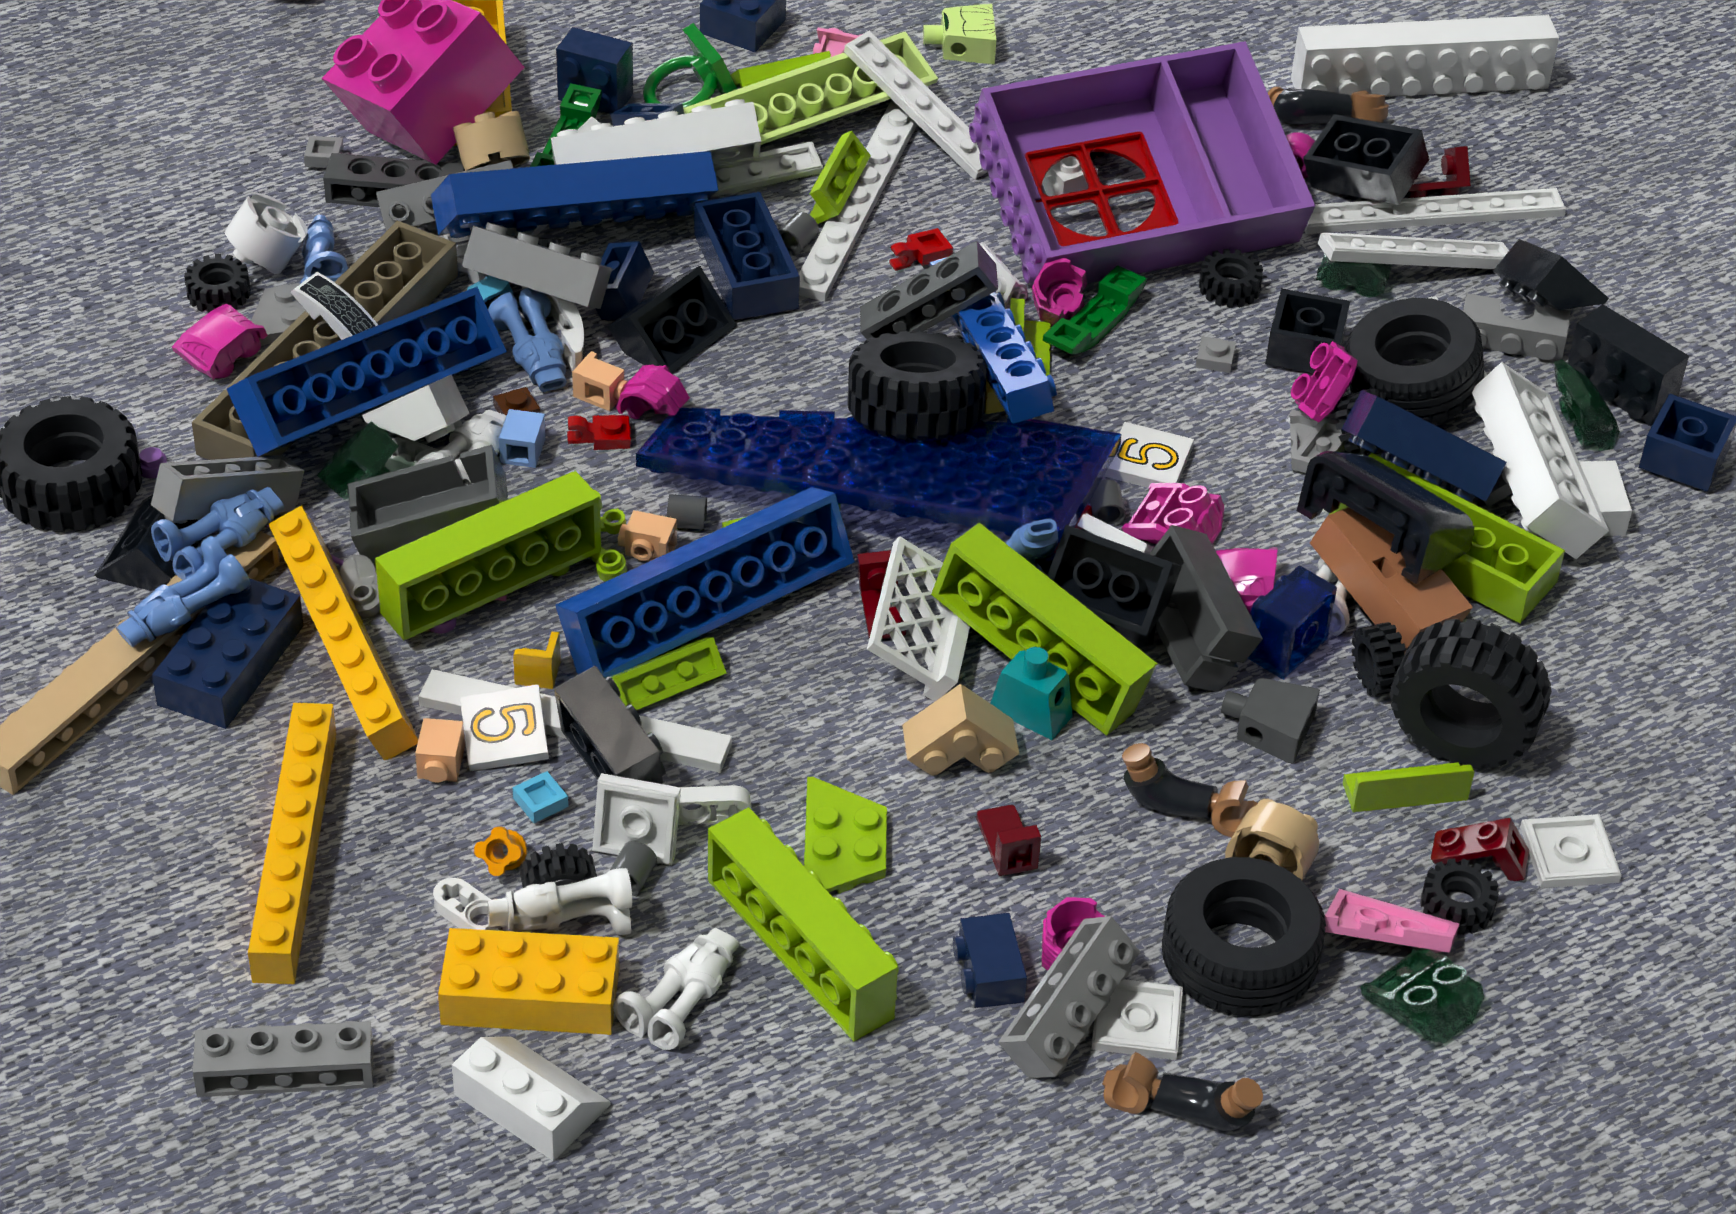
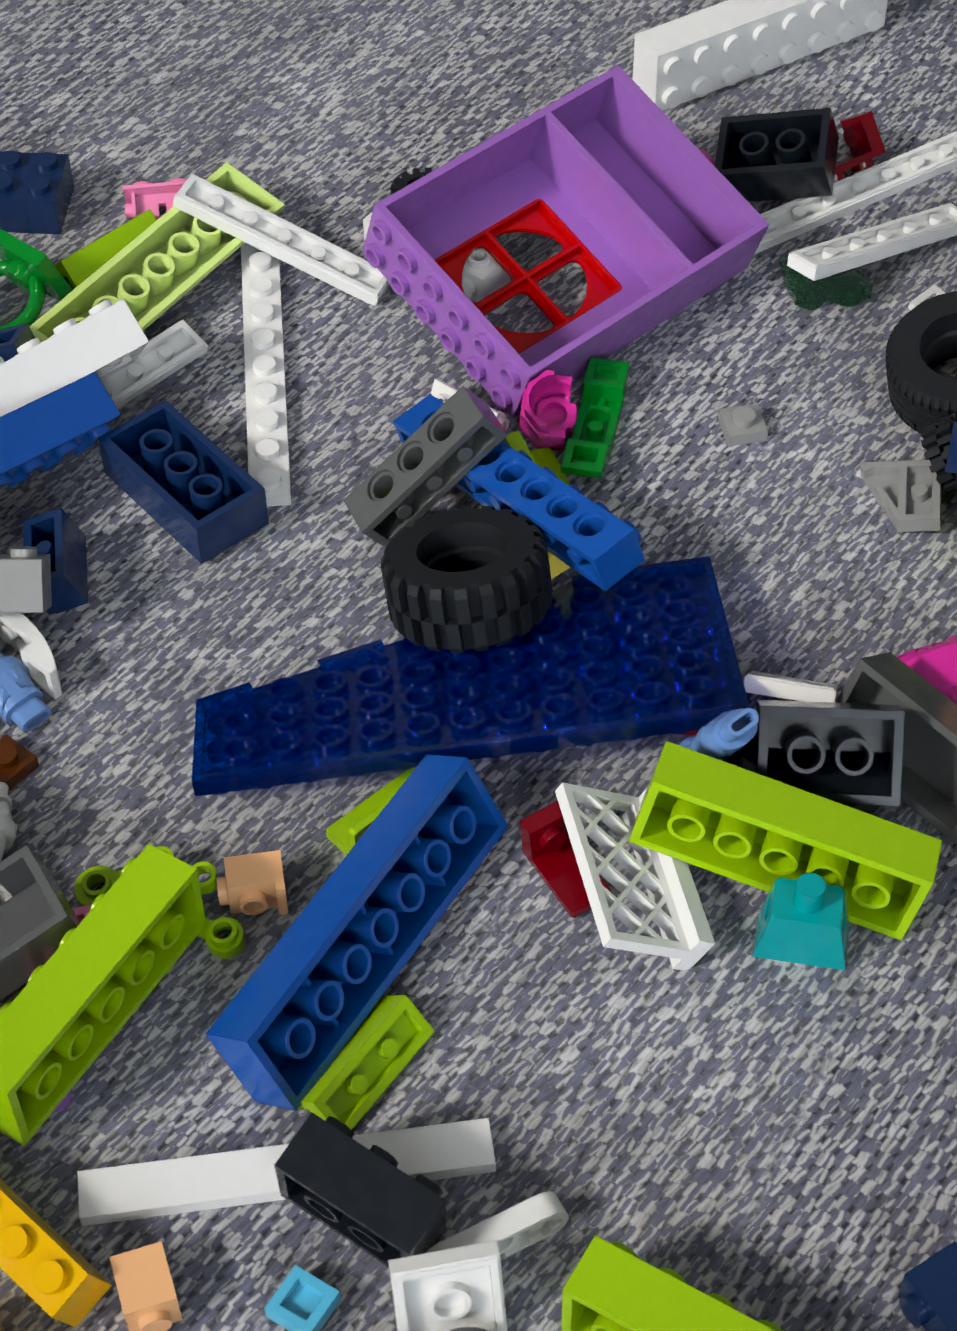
camera: 20 degrees left, 5 degrees up
(504, 728) = (210, 1222): white tile -> none
(522, 438) = (36, 805): light blue brick -> none
(538, 666) = (206, 1112): yellow panel -> none
(598, 382) = (93, 699): light nougat brick -> none
(604, 432) = (127, 758): red plate -> none
(654, 389) = (164, 685): dark pink hair -> none
(674, 322) = (139, 592): black slope -> none
(688, 510) = (280, 830): dark grey beam -> none
(799, 232) = (224, 429): dark grey beam -> none
(838, 177) = (237, 357): lime panel -> none
(843, 837) = (689, 1206): lime wing -> none
(921, 246) = (370, 402): red plate -> none
(957, 728) = (753, 1009): tan brick -> none
(965, 34) = (280, 145): yellowish green torso -> none
(1009, 843) = (879, 1132): dark red bracket -> none
(1108, 503) = (746, 645): dark grey beam -> none
(1149, 456) = (750, 570): white tile -> none
(1177, 506) = (820, 634): dark pink slope -> none
(1230, 291) = (709, 317): black tyre -> none
(1301, 325) = (830, 368): black brick -> none
(1319, 106) = (705, 110): black piece -> none
(1323, 390) = (894, 421): dark pink slope -> none

